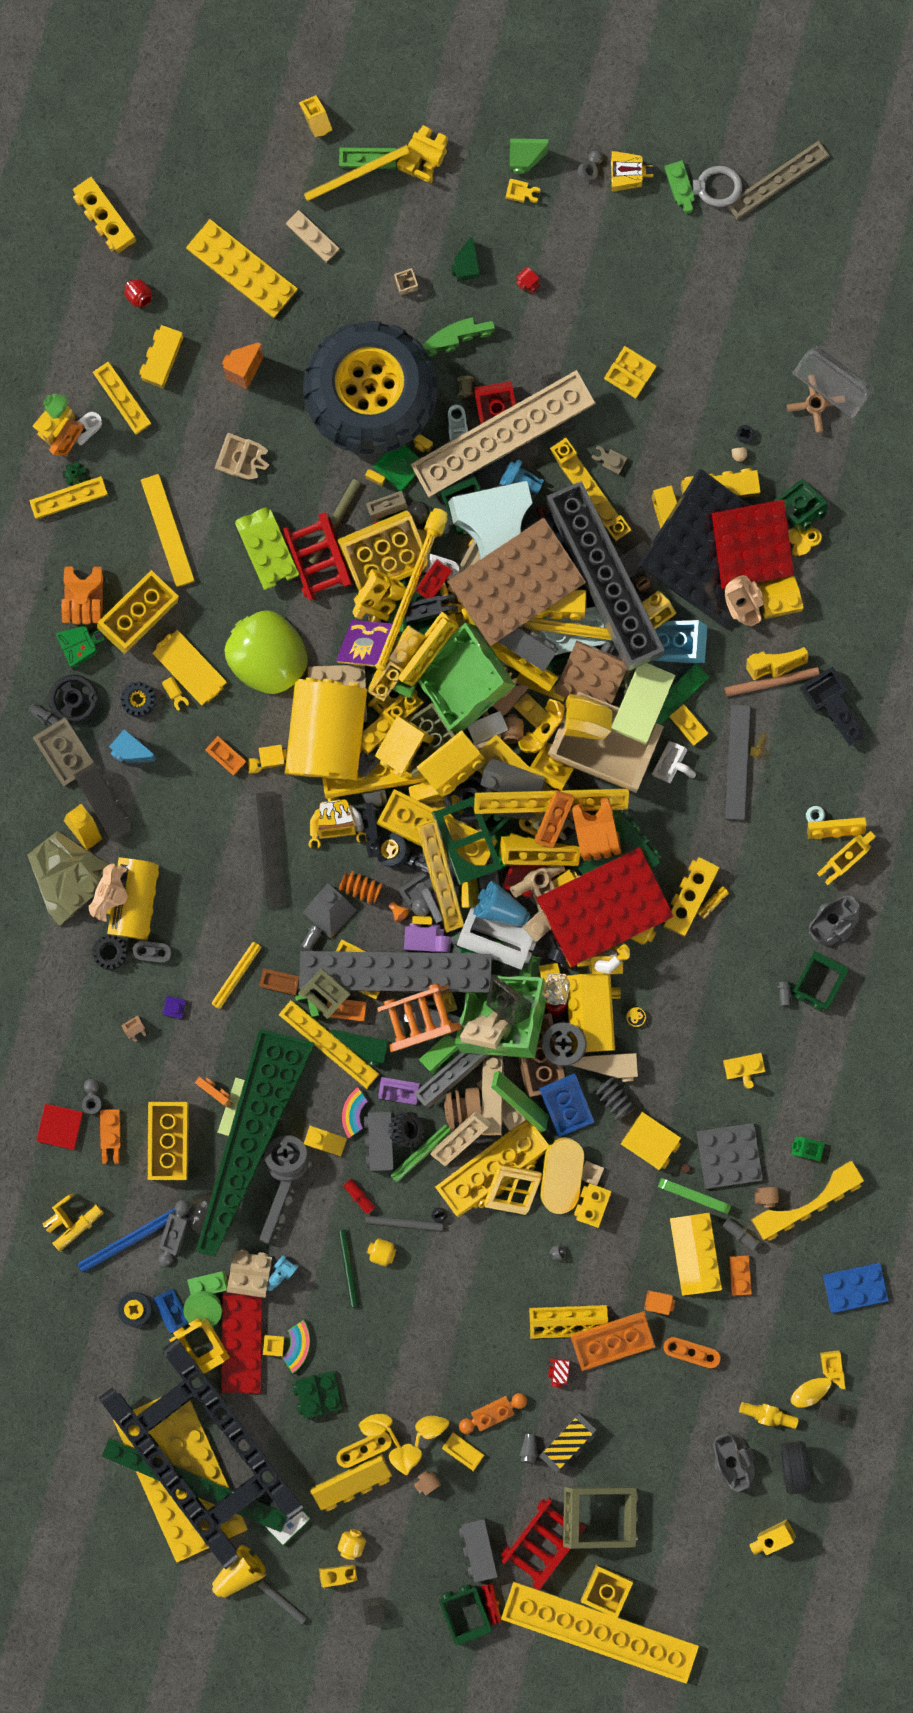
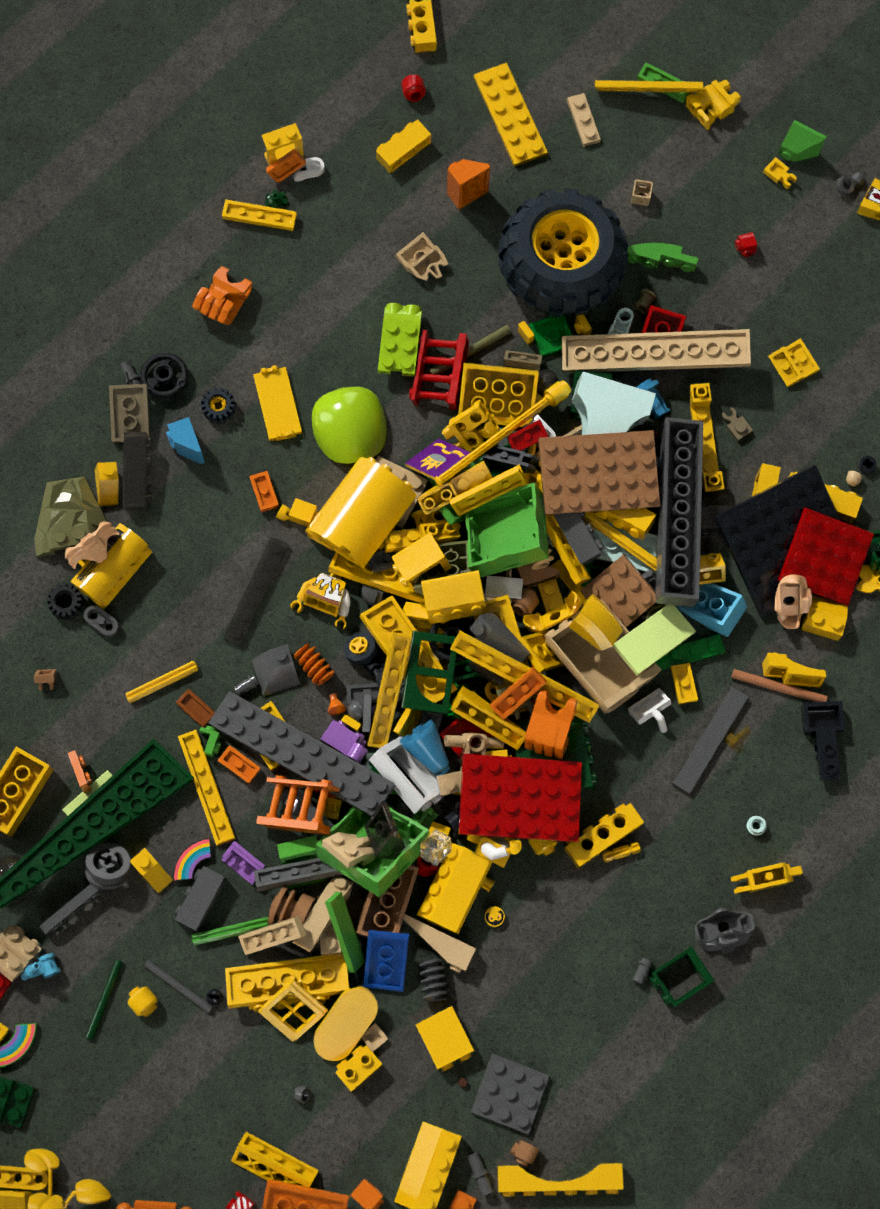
camera: 25 degrees right, 10 degrees down
(55, 405) = (289, 124): bright green cone -> none
(79, 644) = (195, 334): green torso -> none
(122, 398) = (351, 161): yellow plate -> none
(137, 612) = (260, 332): yellow brick -> none
(167, 530) = (325, 285): yellow tile -> none
(174, 692) = (252, 416): yellow bar -> none
(174, 1007) = (91, 679): dark purple plate -> none
(315, 116) = (639, 30): yellow slope -> none
(329, 988) = (233, 735): olive plate -> none
(359, 1196) = (152, 938): red axle -> none
(366, 1047) = (237, 807): dark green slope -> none
(371, 832) = (351, 622): black hinge -> none
(415, 1129) = (220, 897): black tyre -> none
(466, 263) = (701, 203): dark green slope -> none
(563, 1059) = (406, 914): dark grey wheel -> none
(643, 588) = (709, 545): medium nougat hinge -> none
(694, 1196) = (457, 1113): bright green beam -> none
(744, 1067) = (569, 1019): yellow plate -> none
(807, 1148) = (586, 1128): green bracket -> none
(836, 828) = (770, 847): yellow plate -> none

